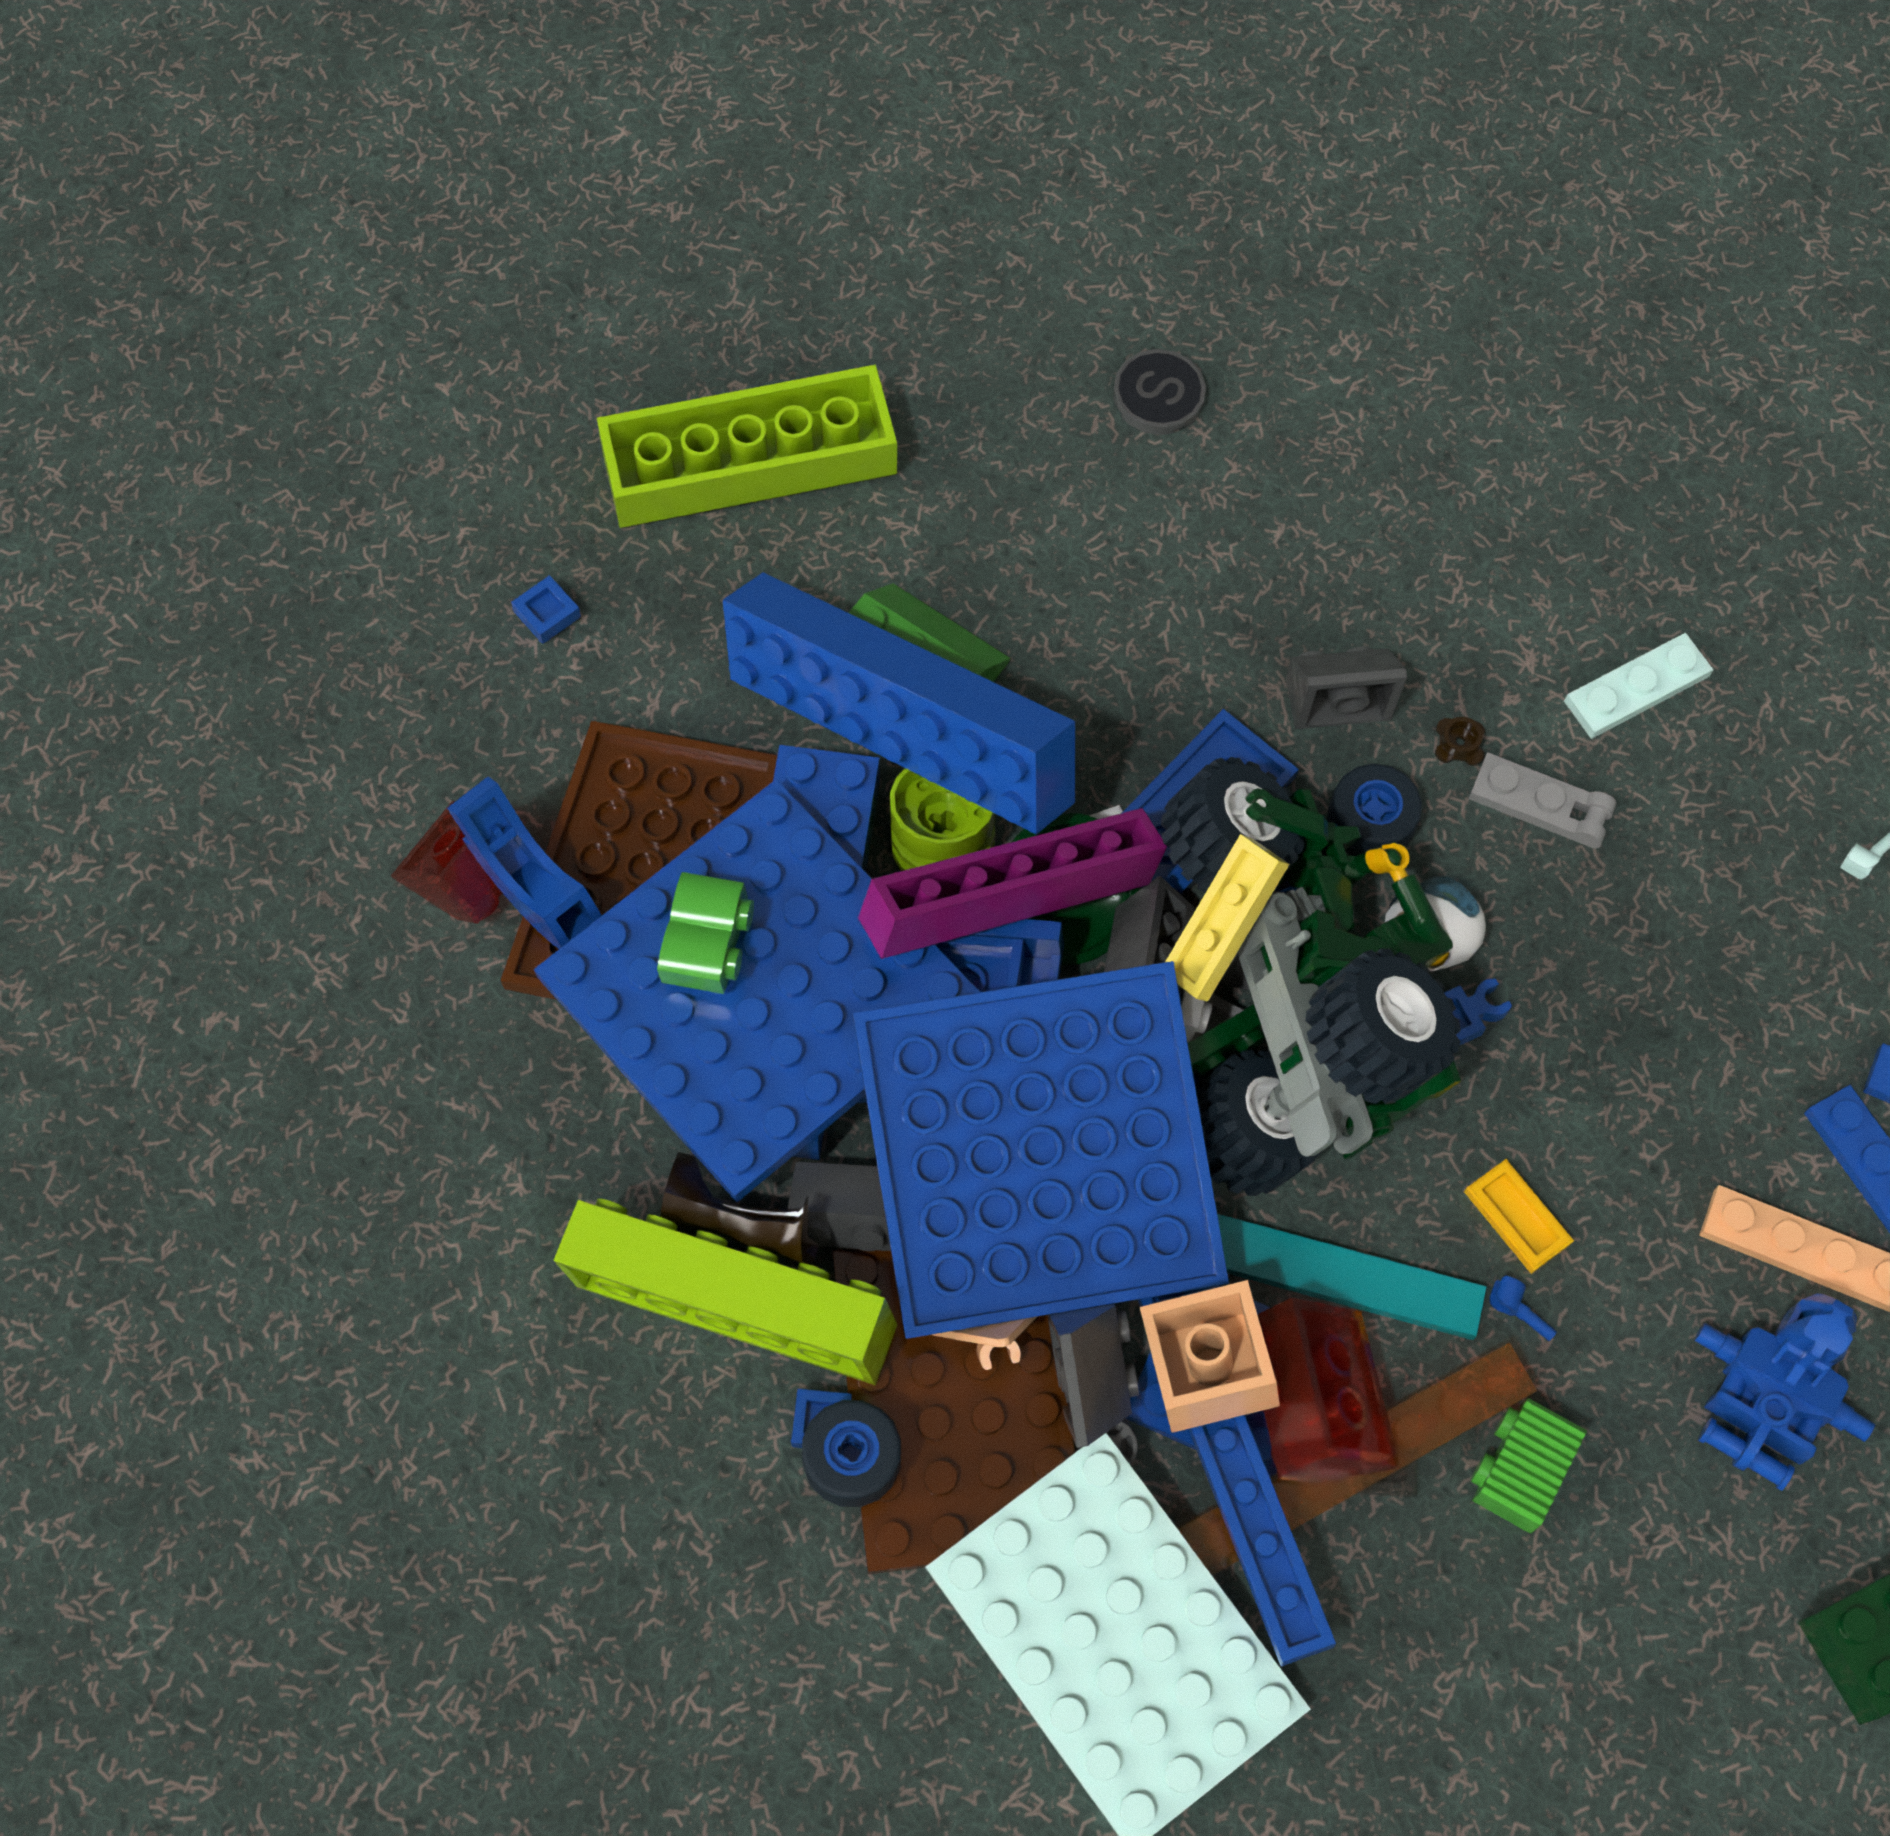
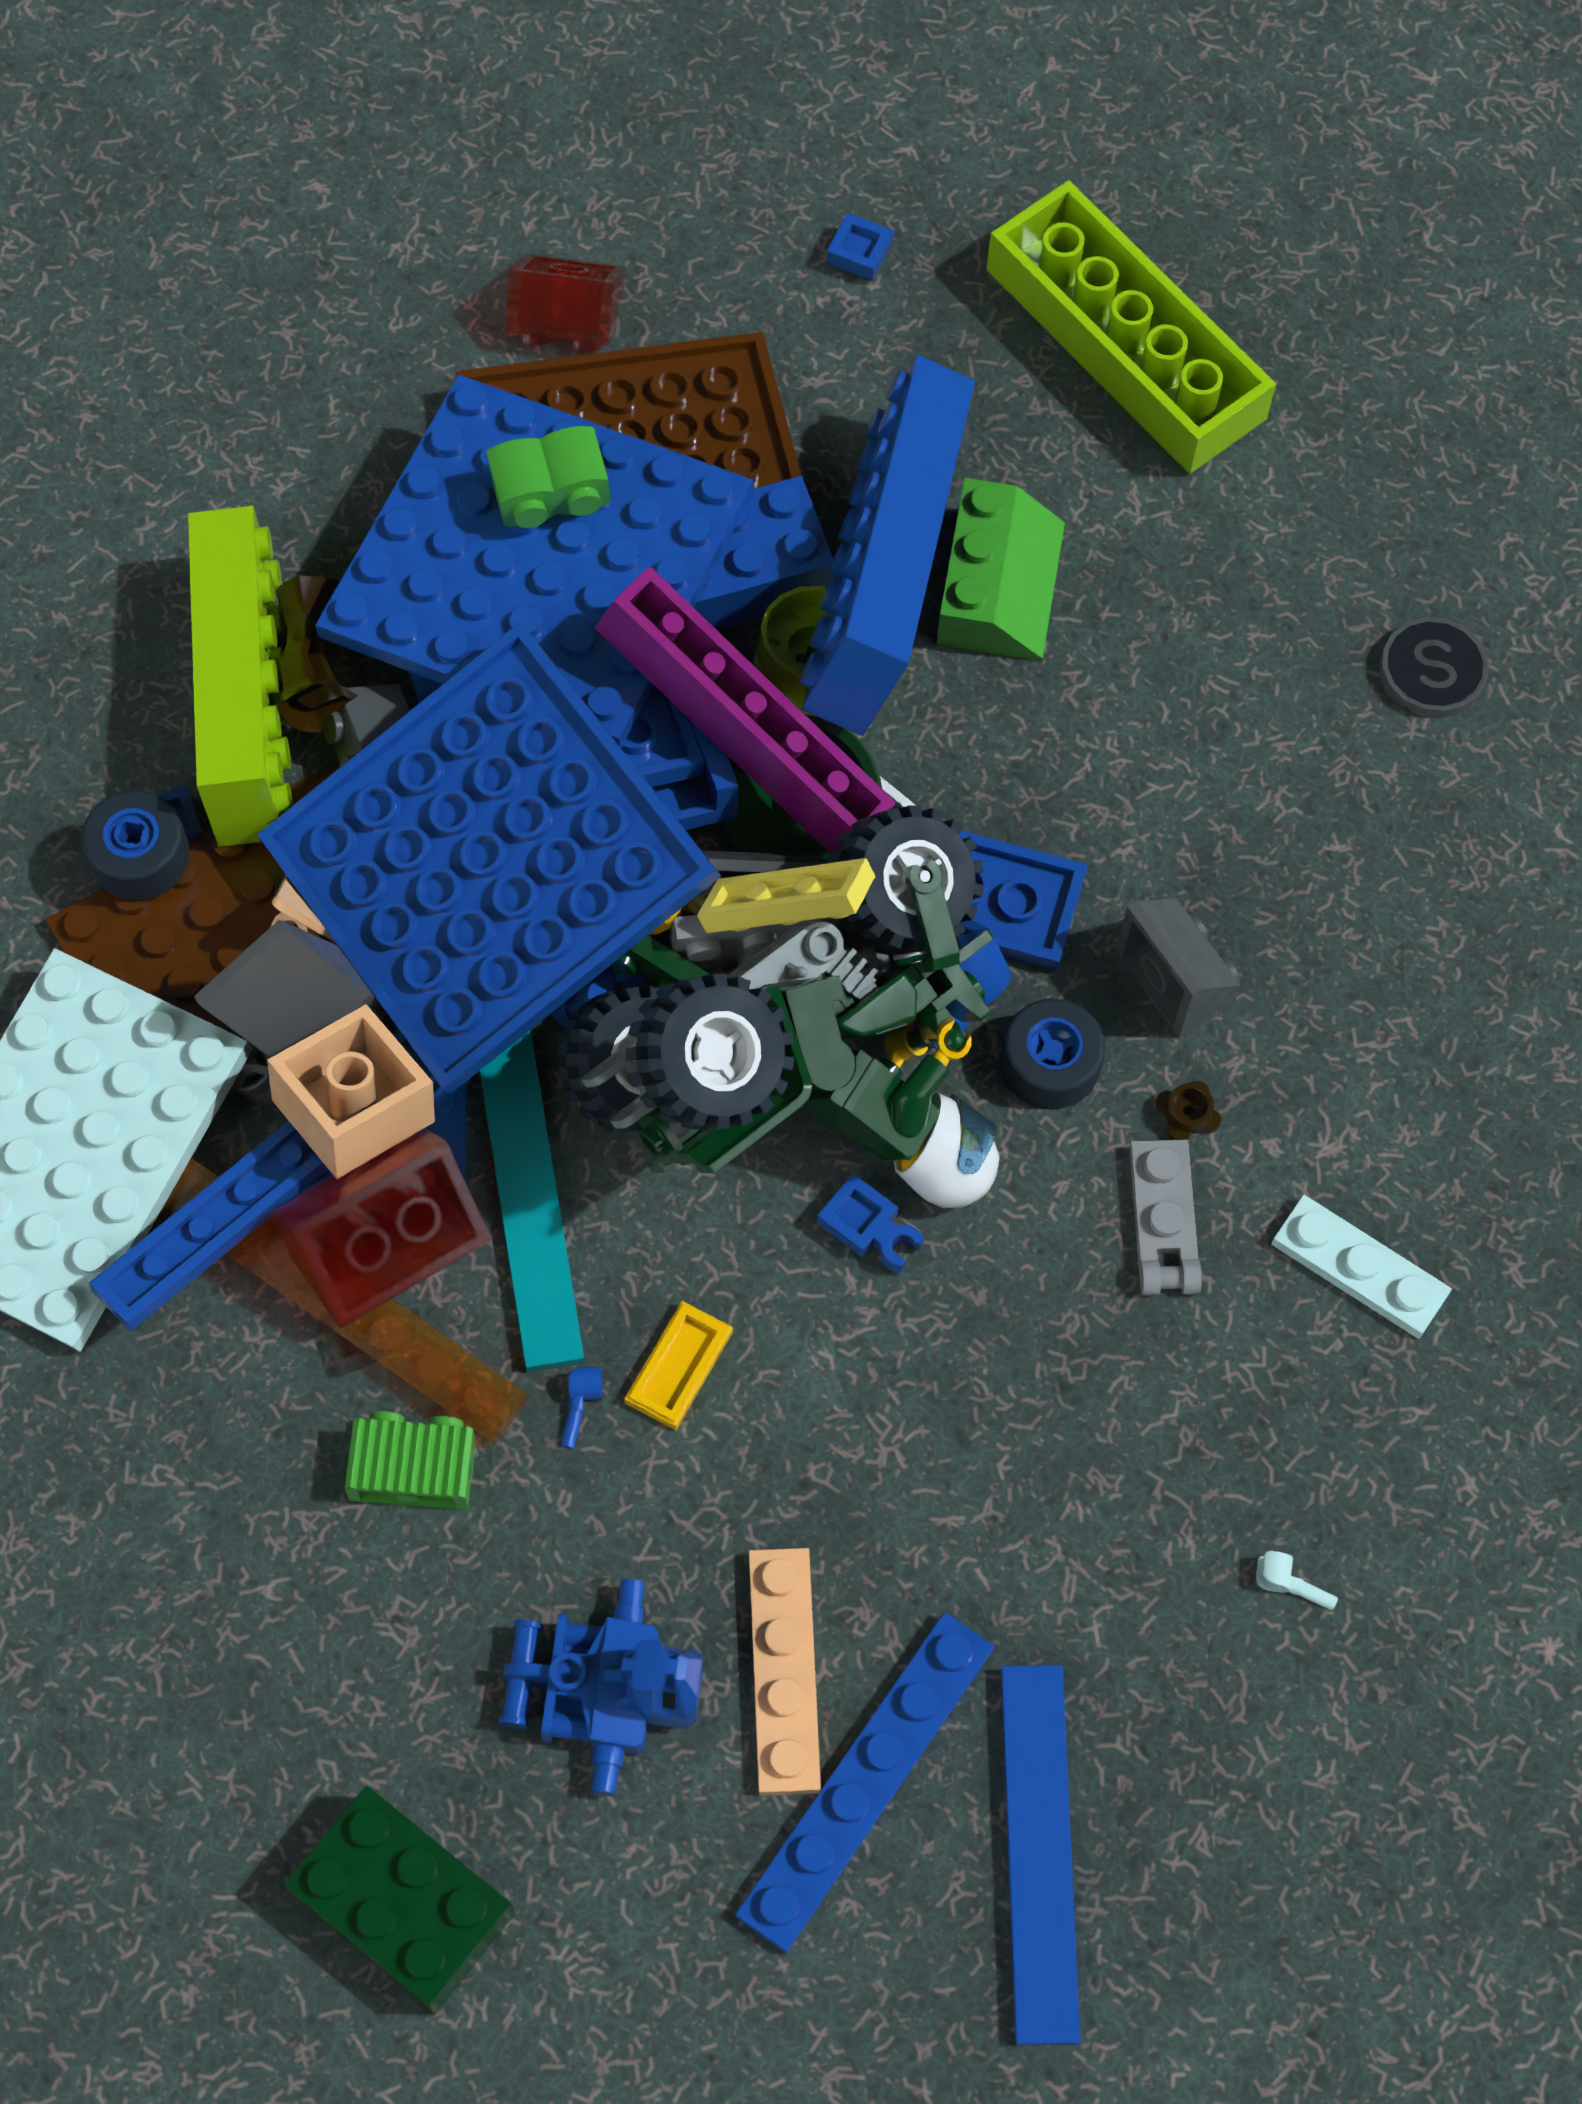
camera: 65 degrees right, 0 degrees up
(519, 866) = (566, 322): blue arch -> none

